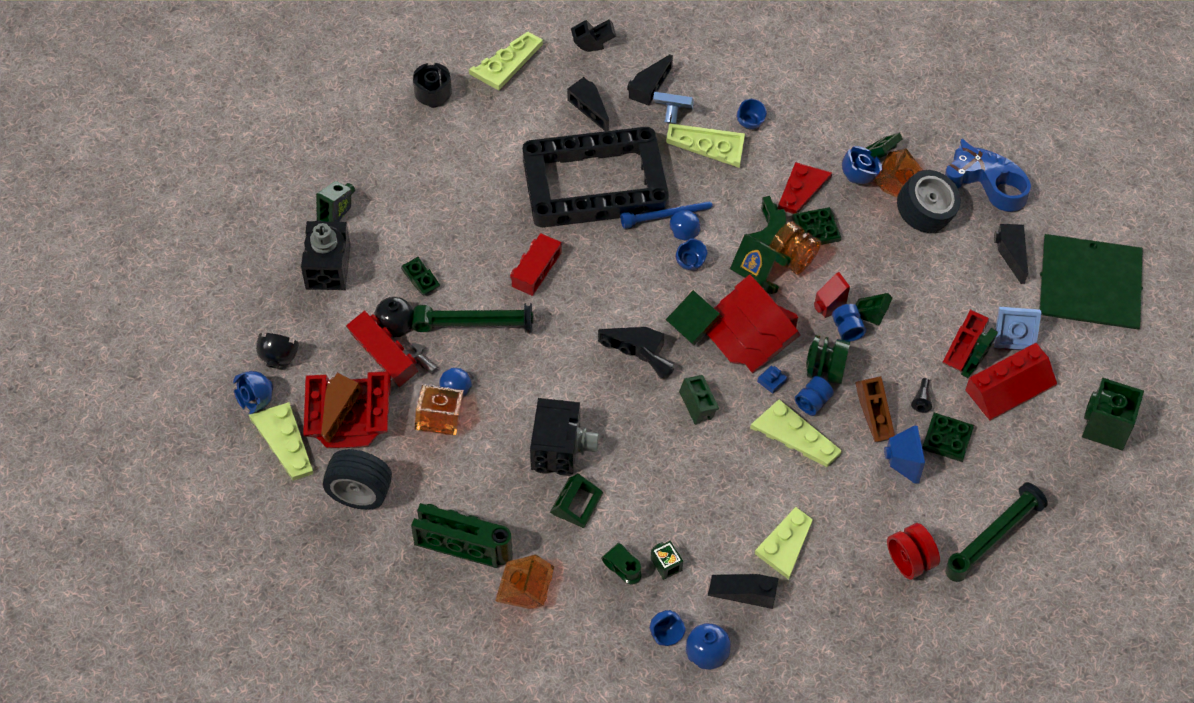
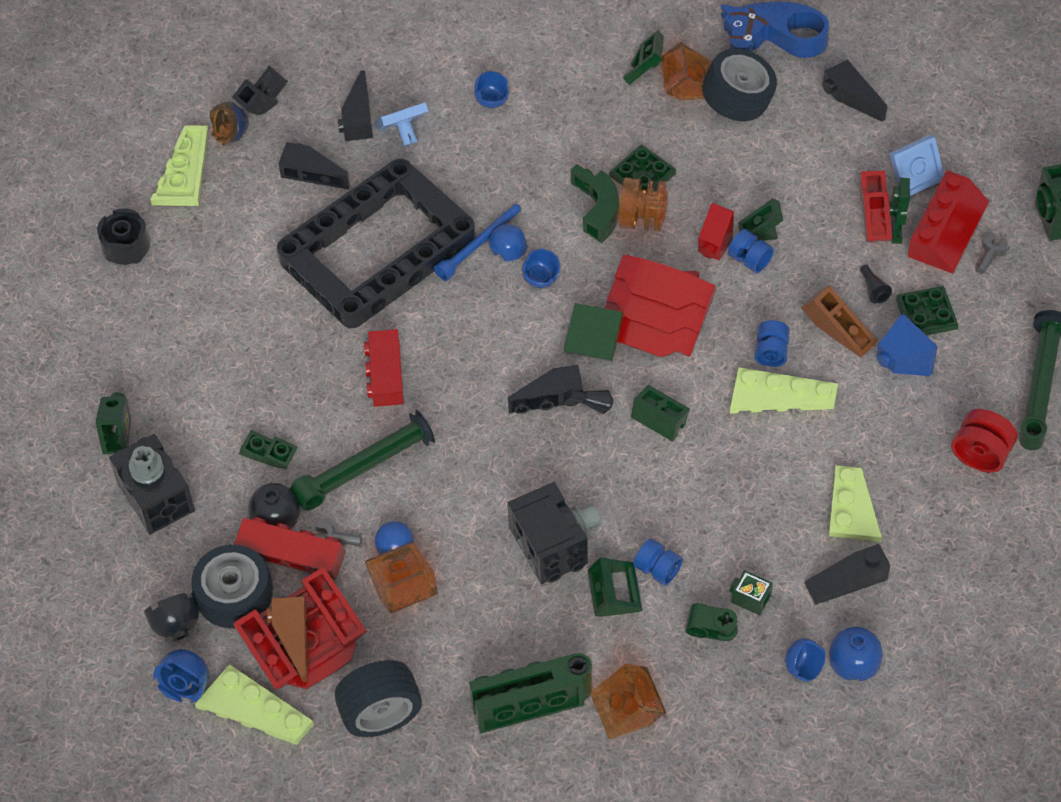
camera: 30 degrees left, 0 degrees up
(327, 349) = (231, 584): none -> wheel
(558, 44) = (228, 122): none -> clear orange hair
(617, 500) = (655, 560): none -> blue wheel
(712, 143) = (471, 142): yellowish green wing -> none
(758, 260) = (613, 236): dark green flag -> none
(772, 379) = (715, 351): blue tile -> none
(801, 186) = (596, 138): red wing -> none
(827, 359) = (761, 298): dark green wheel -> none
(860, 165) = (644, 86): blue cylinder -> none
(1030, 421) = (991, 252): none -> flat silver bar
(1091, 281) = (946, 82): dark green piece -> none

